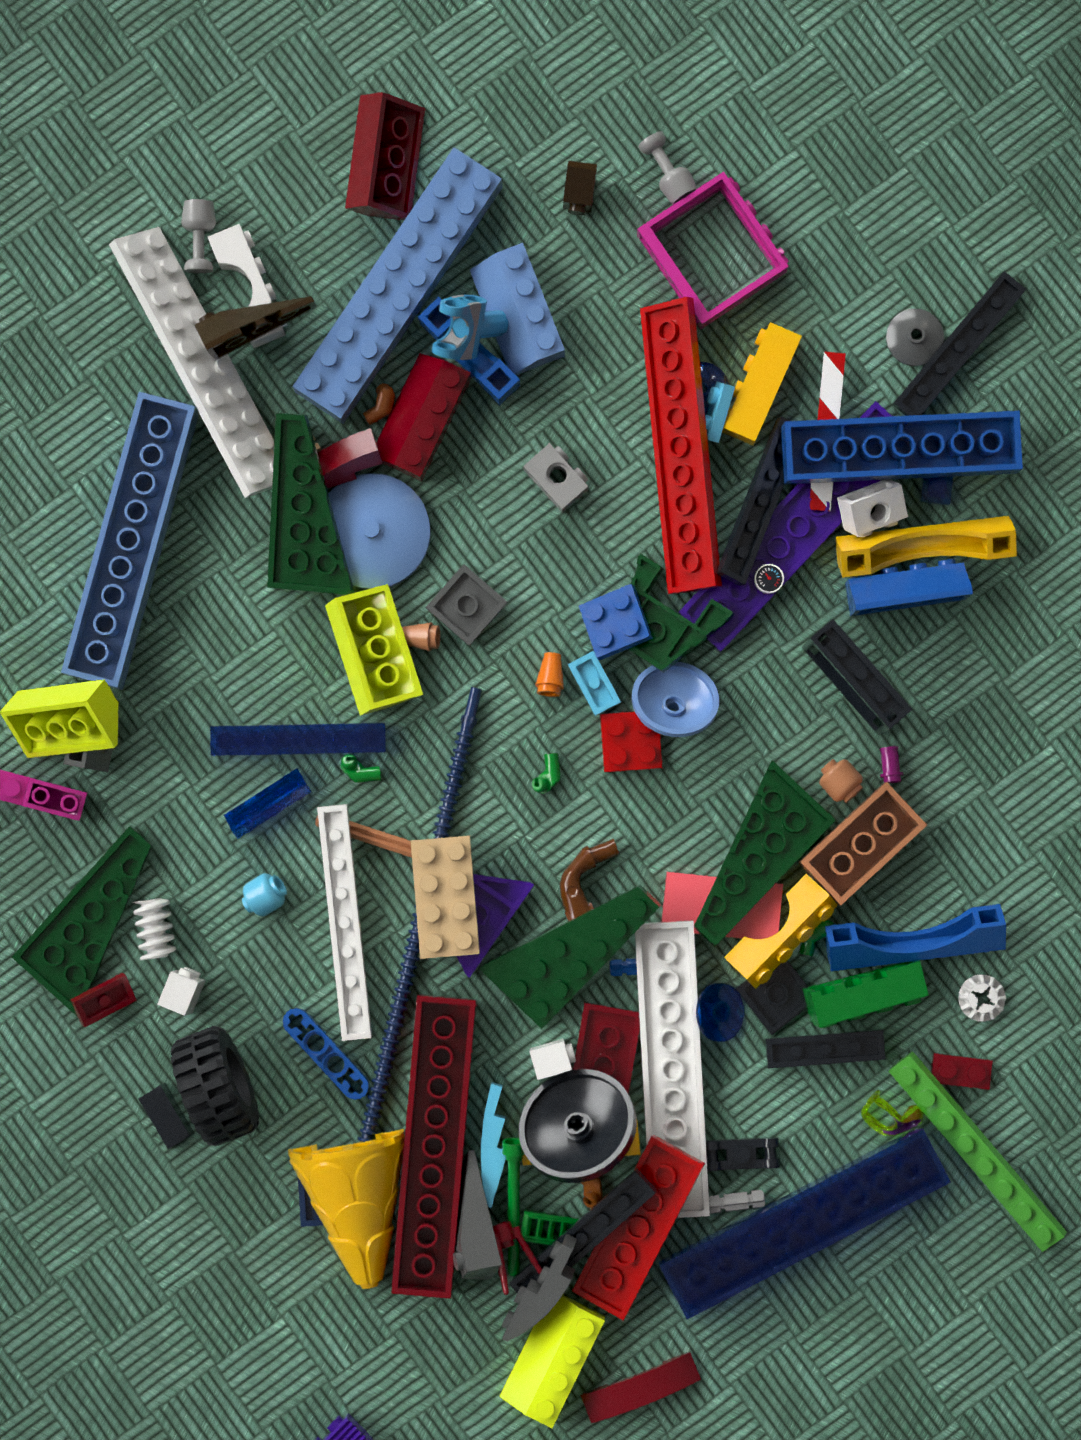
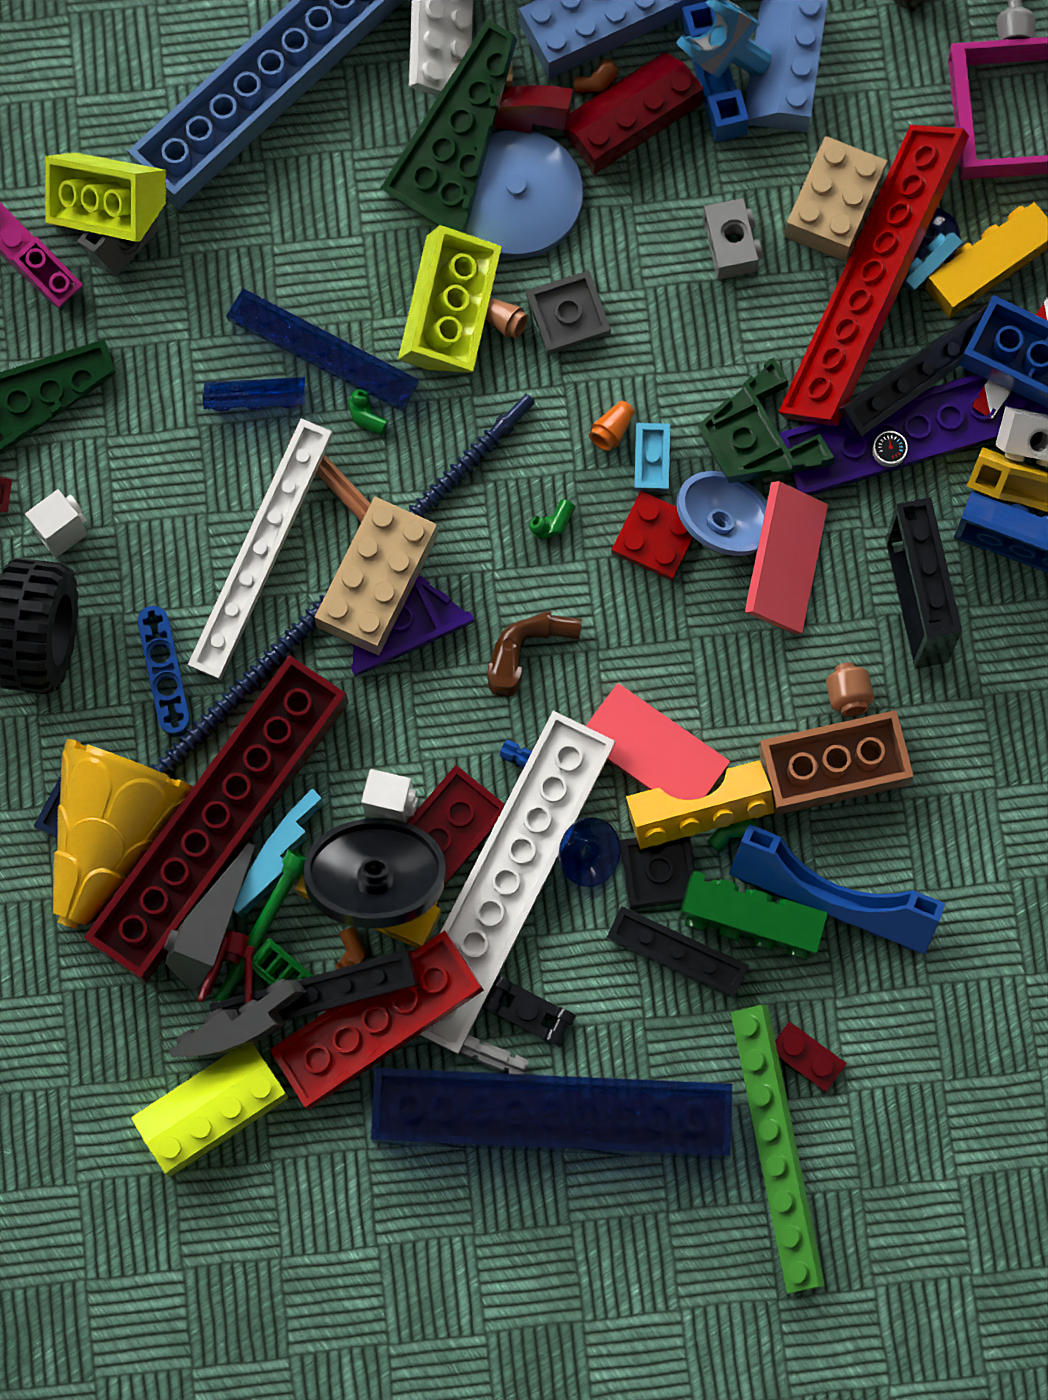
camera: 25 degrees right, 10 degrees down
(154, 928) = (67, 450): white piece -> none
(264, 894) = (196, 478): medium azure head -> none
(560, 962) = (453, 708): dark green wing -> none
(615, 622) = (708, 407): blue plate -> none
(617, 401) = (835, 198): none -> tan brick
(641, 1388) = (282, 1192): dark red slope -> none
(739, 707) = (786, 558): none -> coral tile
(769, 842) = (731, 713): dark green wing -> none
(890, 764) = (911, 703): magenta pin -> none
(908, 1120) = (716, 1070): clear neon green piece -> none
(968, 1001) = (869, 1010): white gear -> none

